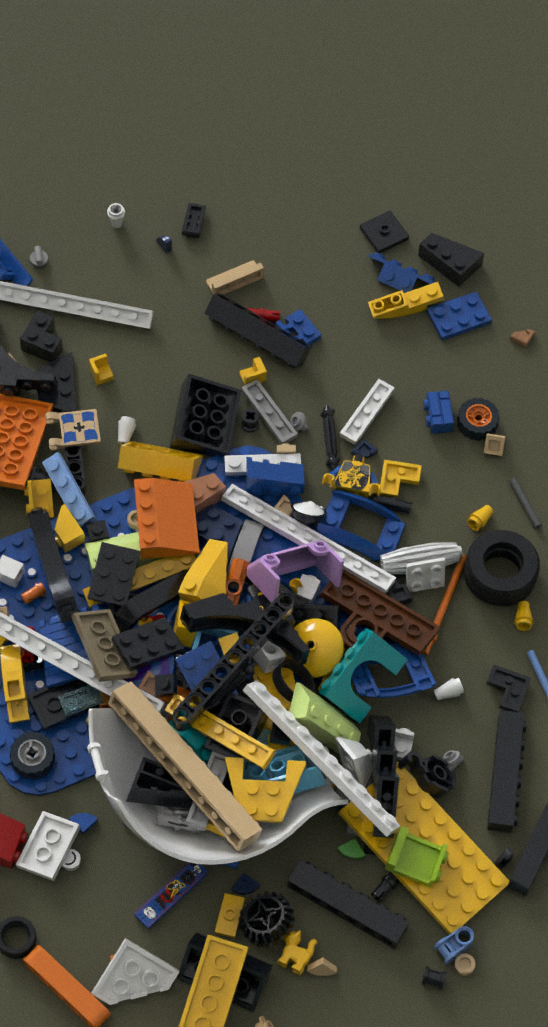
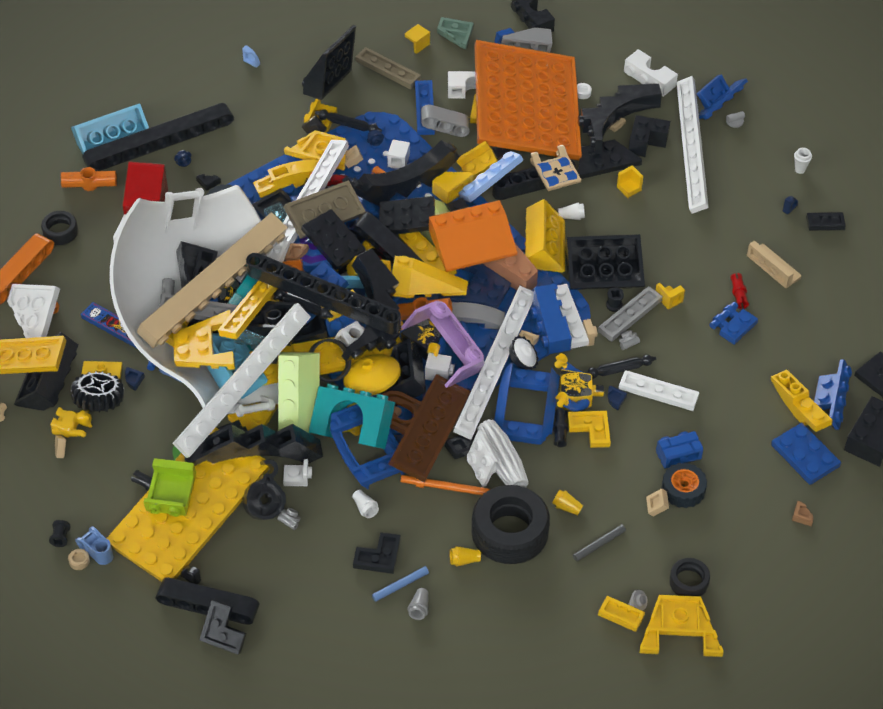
camera: 80 degrees right, 10 degrees down
(166, 685) = (294, 257): black plate -> none
(258, 330) = (716, 286): black brick -> none
(348, 904) = (123, 455): black brick -> none
(355, 759) = (263, 413): white slope -> none
(505, 771) = (285, 562): black brick -> none

